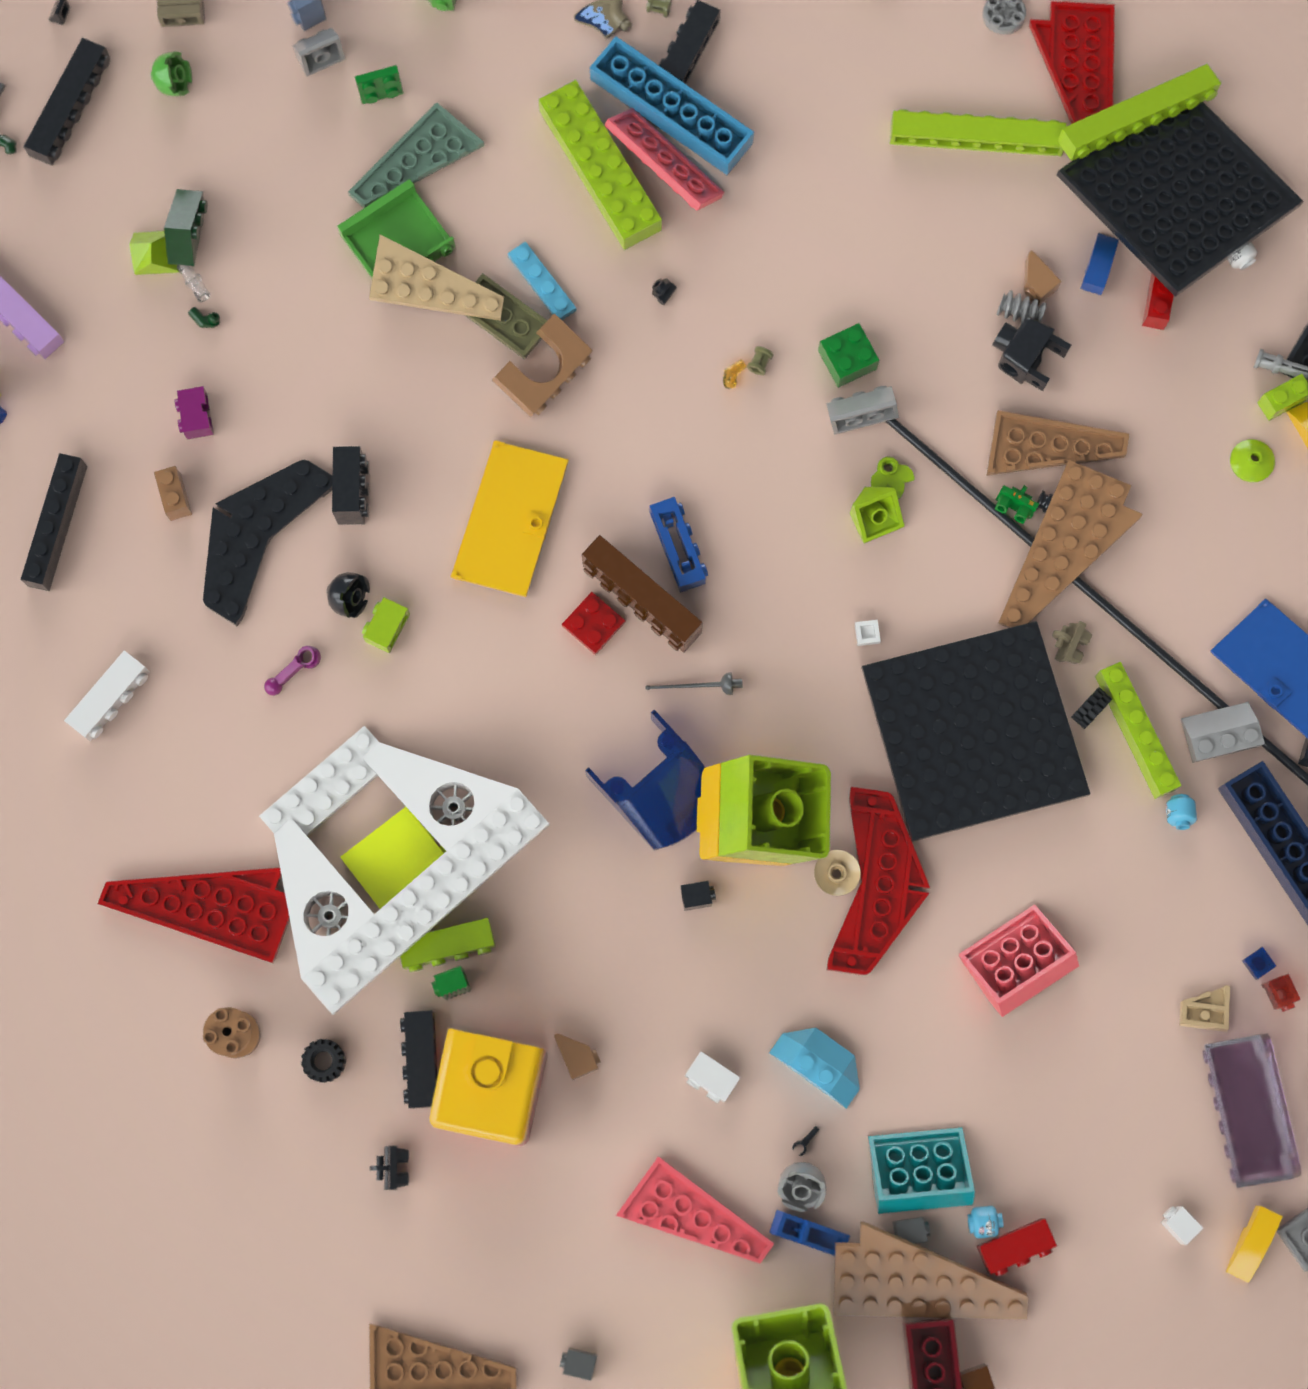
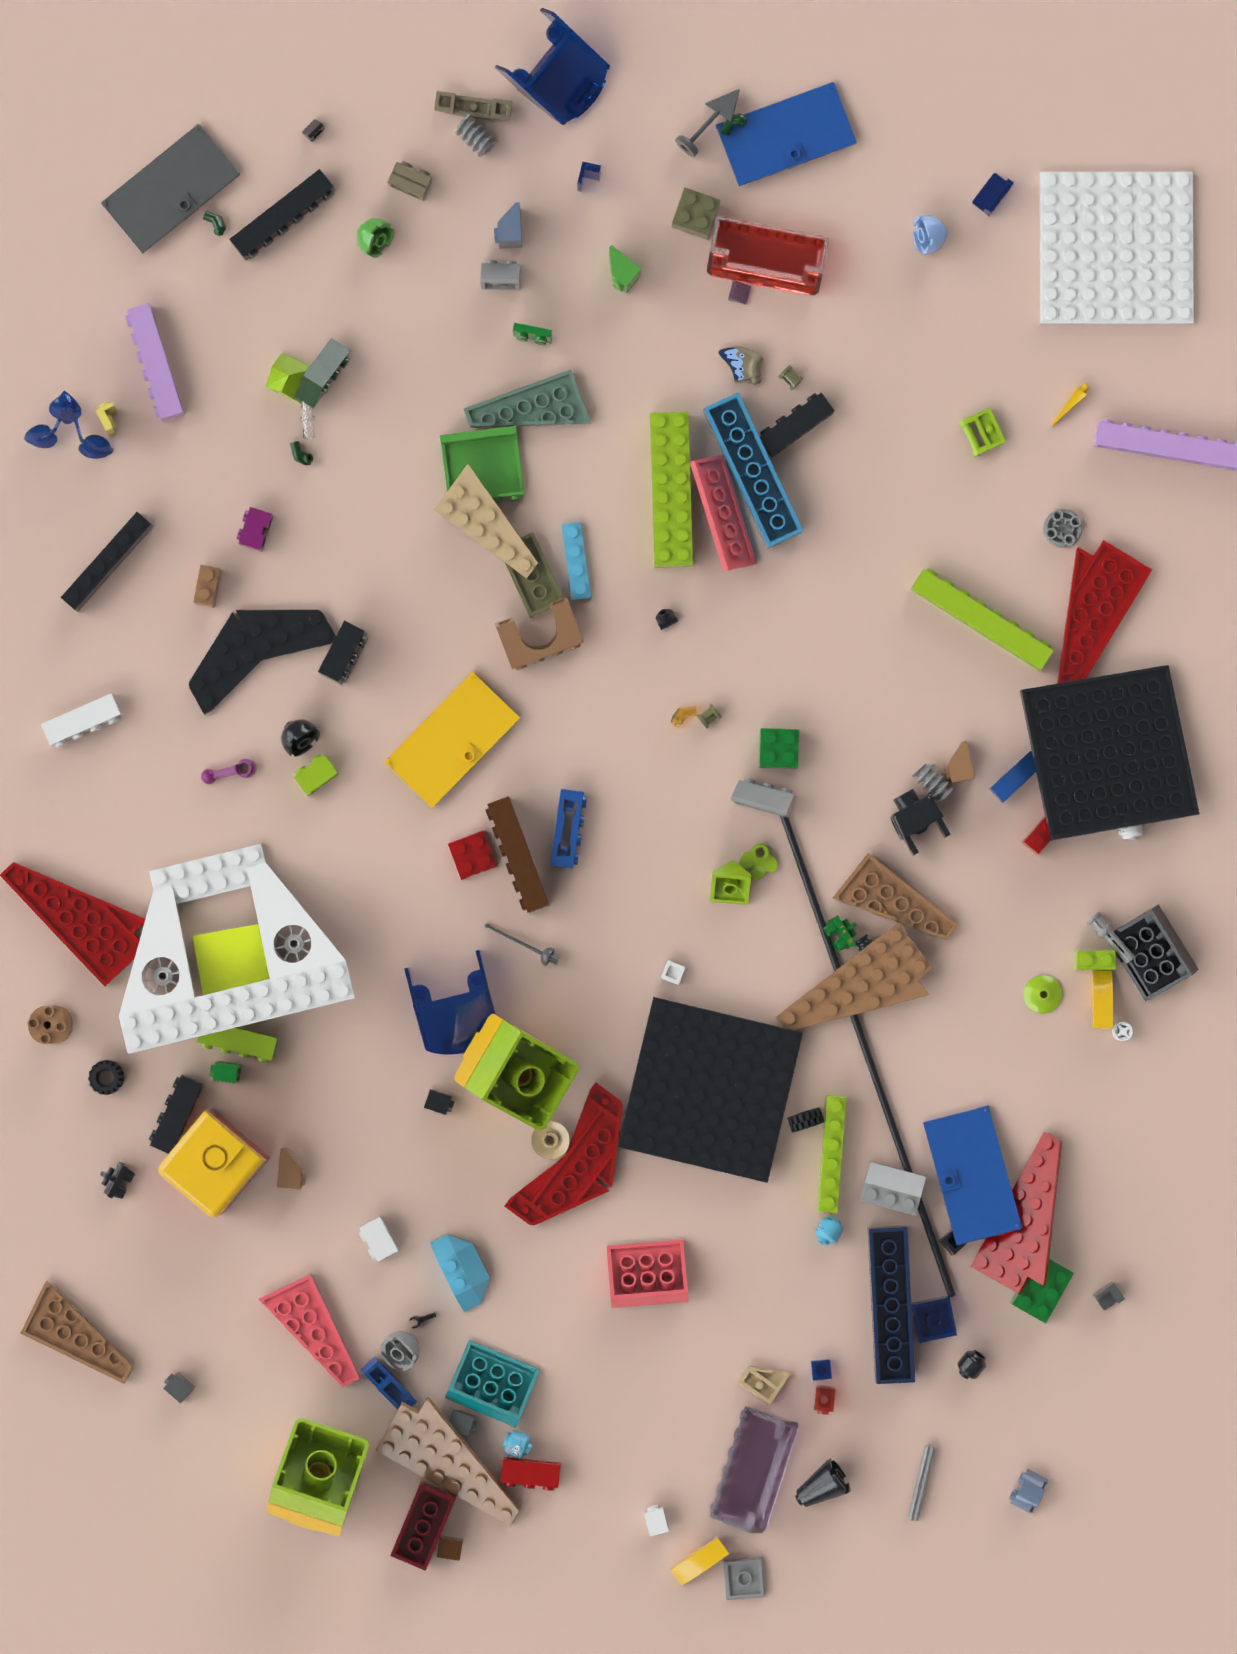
camera: 25 degrees right, 10 degrees up
(1068, 640) = (819, 1059): dark tan hips -> none
(1139, 112) = (1113, 675): lime brick -> none

